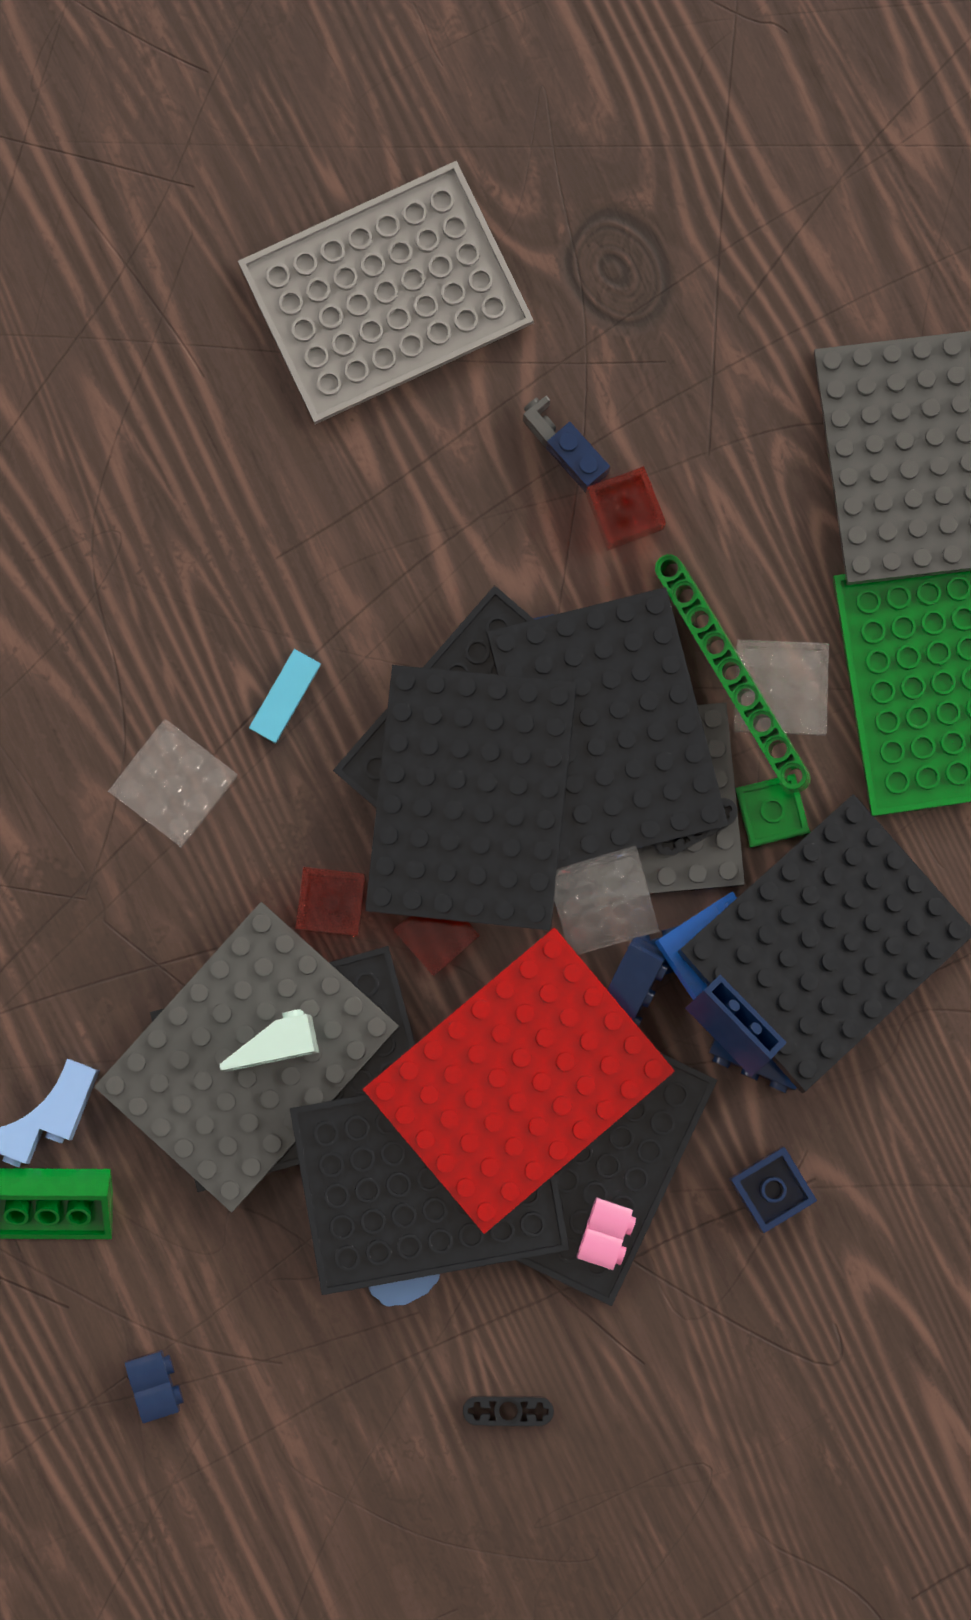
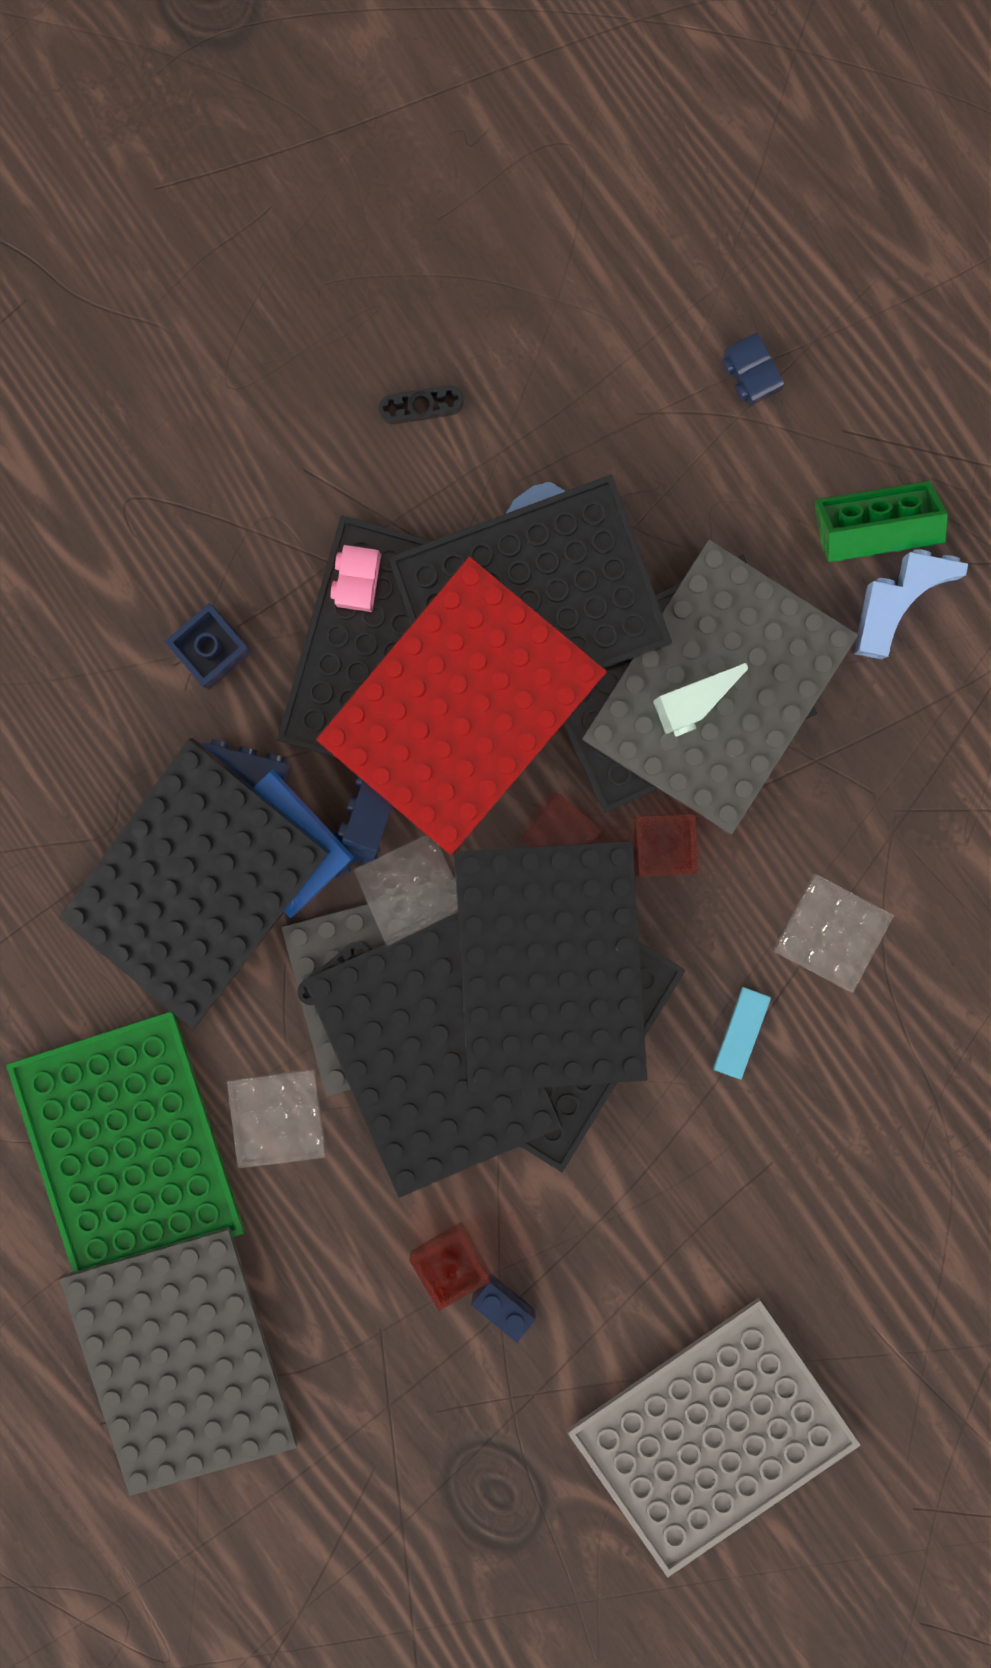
camera: 170 degrees right, 5 degrees up
(540, 426) = (545, 1331): dark grey bracket -> none
(721, 662) = (330, 1138): green beam -> none
(736, 1025) = (262, 789): dark blue brick -> none
(771, 812) = (267, 1000): green tile -> none

